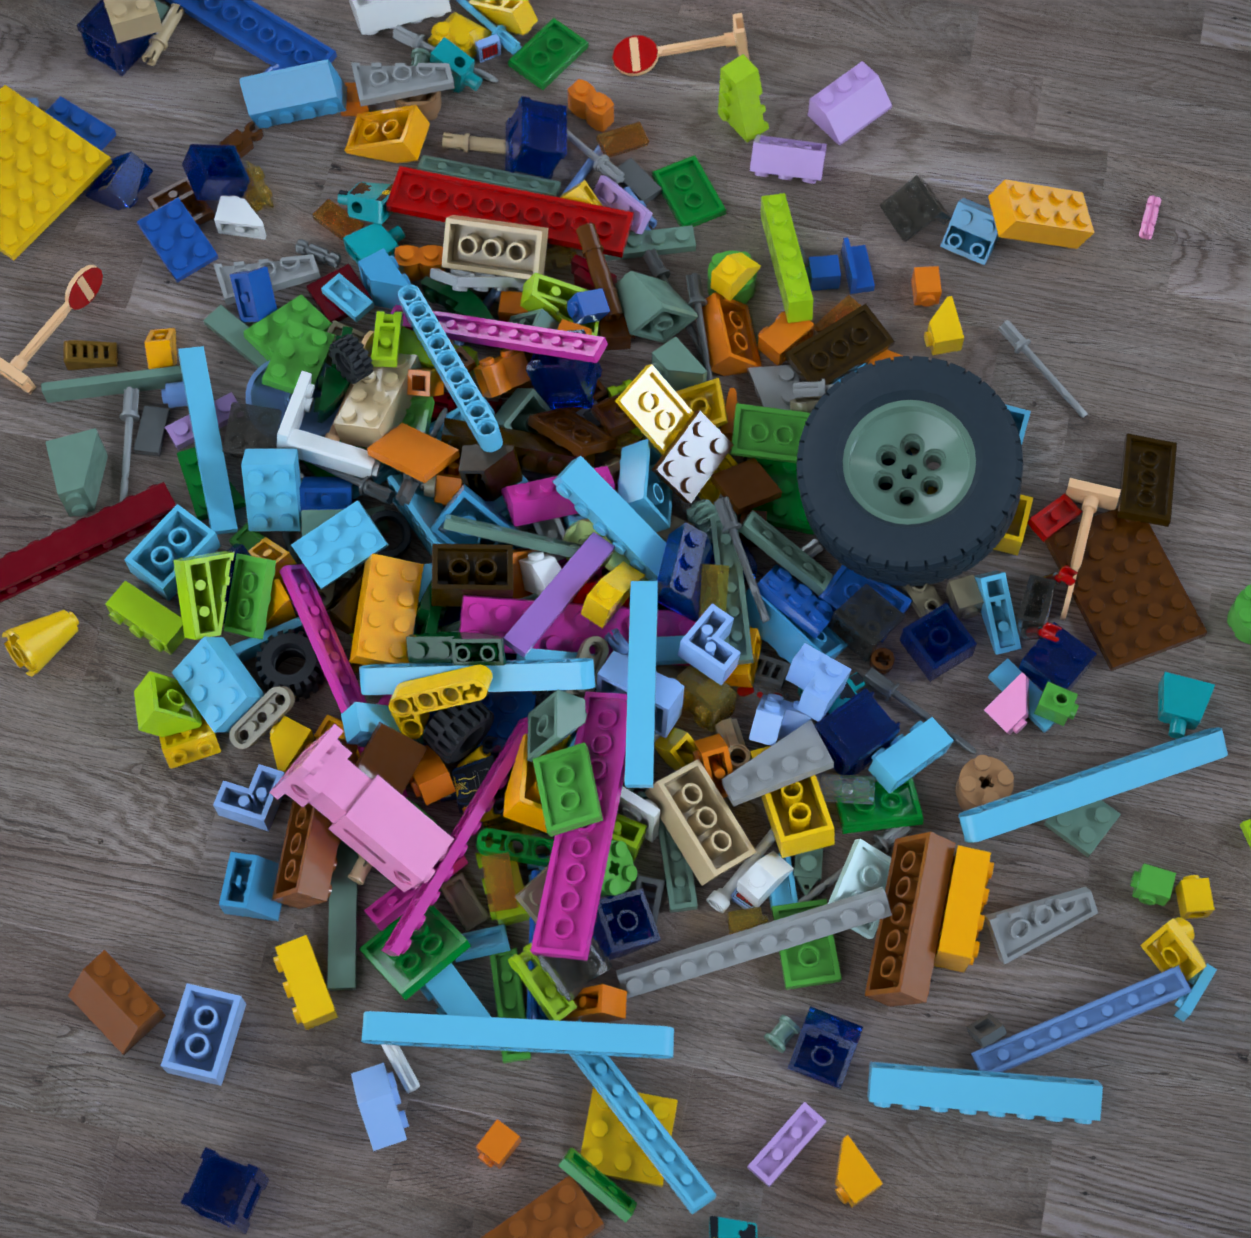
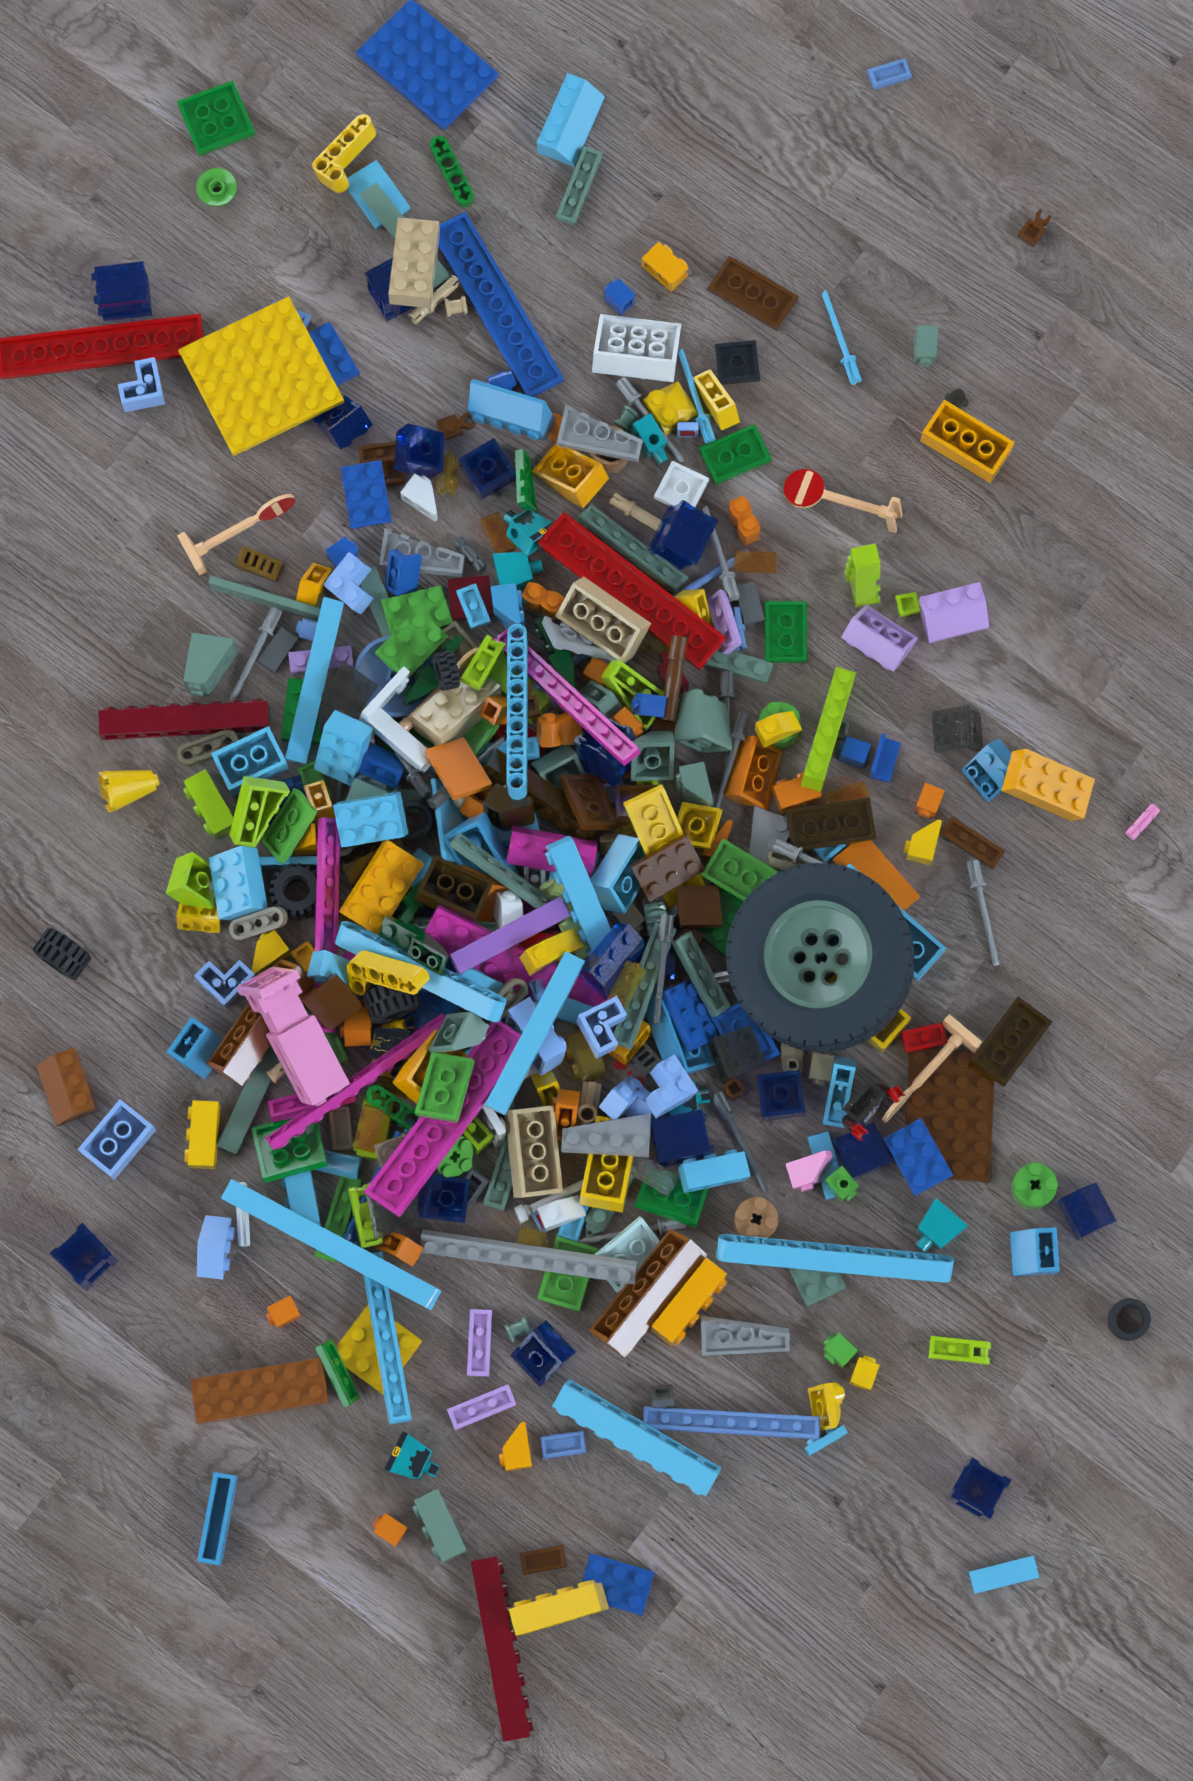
camera: 25 degrees right, 10 degrees up
(43, 850) = (62, 953): none -> black tyre
(105, 566) = (198, 746): none -> dark tan plate
(178, 306) = (339, 550): none -> blue brick
(189, 31) = (456, 306): none -> tan bush
(197, 327) = (345, 583): none -> light blue brick
(297, 162) = (487, 469): none -> clear blue brick
(341, 159) = (524, 481): none -> green wing
(504, 98) = (681, 484): none -> white plate
(620, 360) = (655, 757): none -> sand green slope
(746, 1070) = (479, 1343): none -> lavender plate
(799, 116) = (907, 604): none -> lime plate
(902, 1143) = (563, 1445): none -> medium blue tile
(992, 307) = (972, 842): none -> reddish brown plate
(1120, 639) = (917, 1157): none -> blue plate

